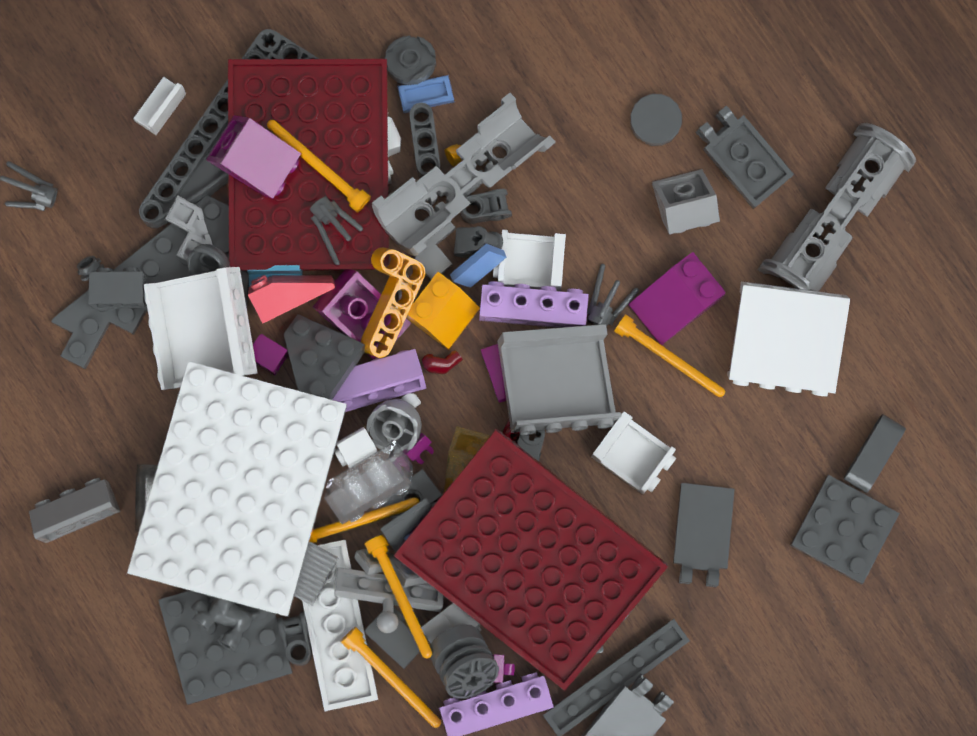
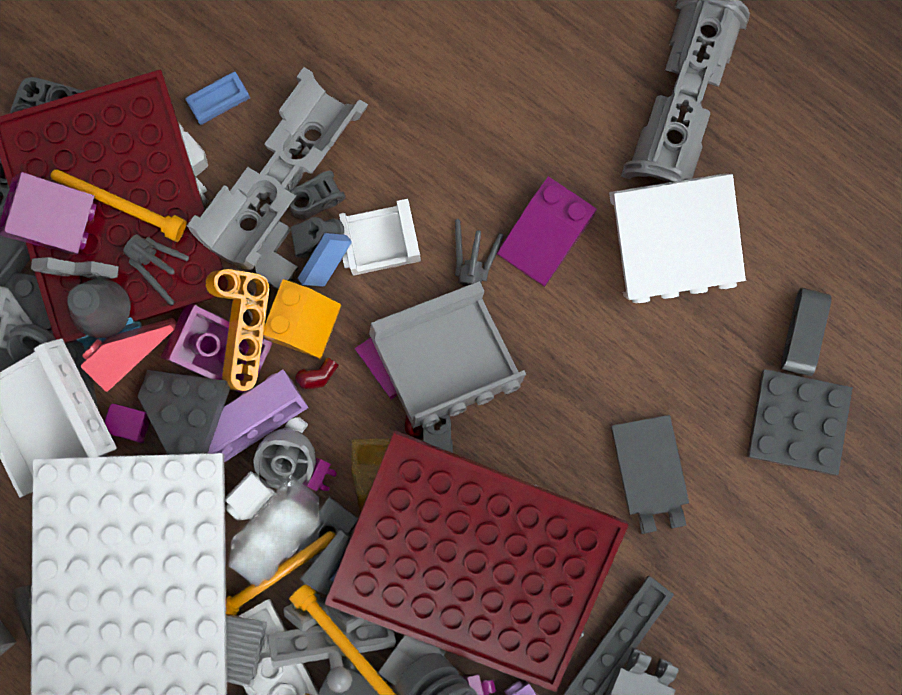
camera: 10 degrees left, 0 degrees up
(275, 249) = (99, 307): none -> dark grey cone
(277, 215) = (65, 268): none -> light grey tile
(410, 60) = (190, 67): dark grey tile -> none
(424, 130) = (224, 136): dark grey beam -> none
(452, 155) = (262, 152): light orange hinge -> none
(533, 306) = (397, 285): lavender brick -> none
(628, 328) = (504, 278): light orange piece -> none
(634, 454) = (552, 411): white panel -> none
(656, 119) = (467, 52): dark grey tile -> none
(686, 201) = (525, 127): light grey slope -> none
(744, 157) = (570, 63): dark grey tile -> none

